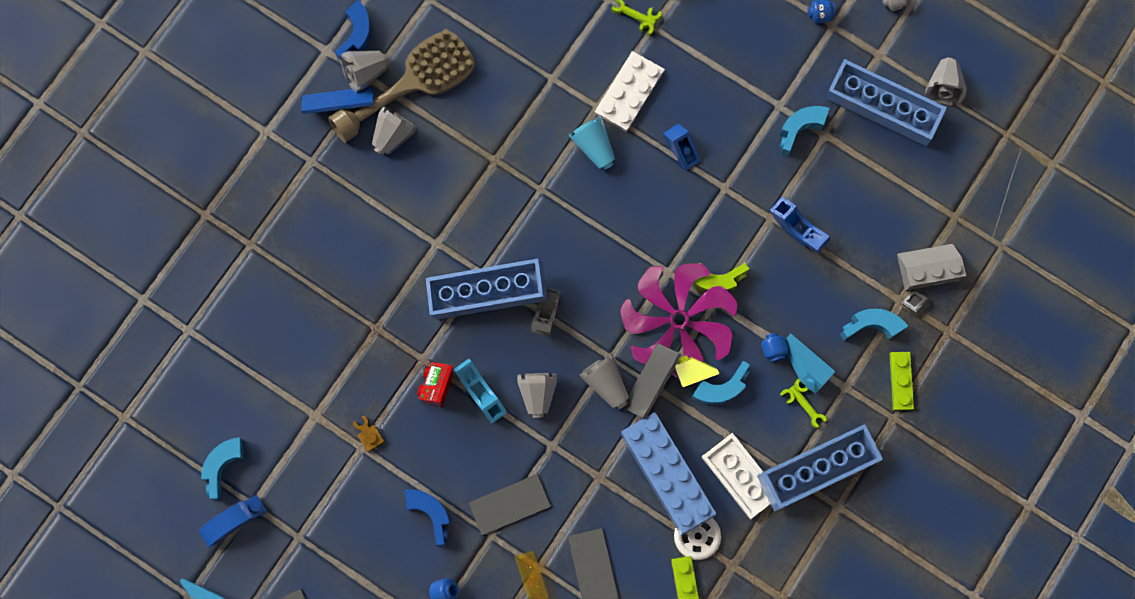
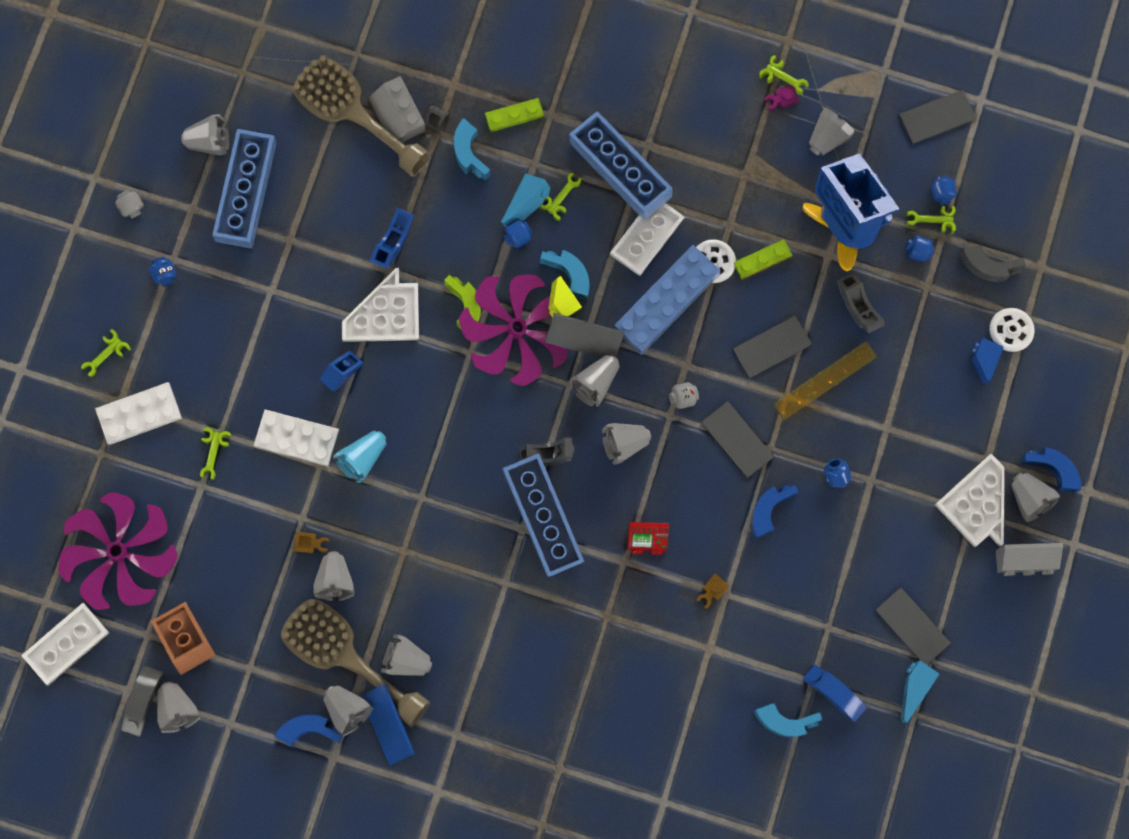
camera: 110 degrees left, 0 degrees up
(480, 391) = (642, 493): dark azure arch -> none
(486, 87) = (333, 579): none -> light grey cone
(526, 75) = (307, 543): none -> pearl gold plate
(567, 463) = (684, 395): none -> light grey head
(727, 202) = (385, 314): none -> white wing
(805, 118) = (286, 267): dark azure arch -> none
(961, 211) = (335, 95): none -> dark tan piece

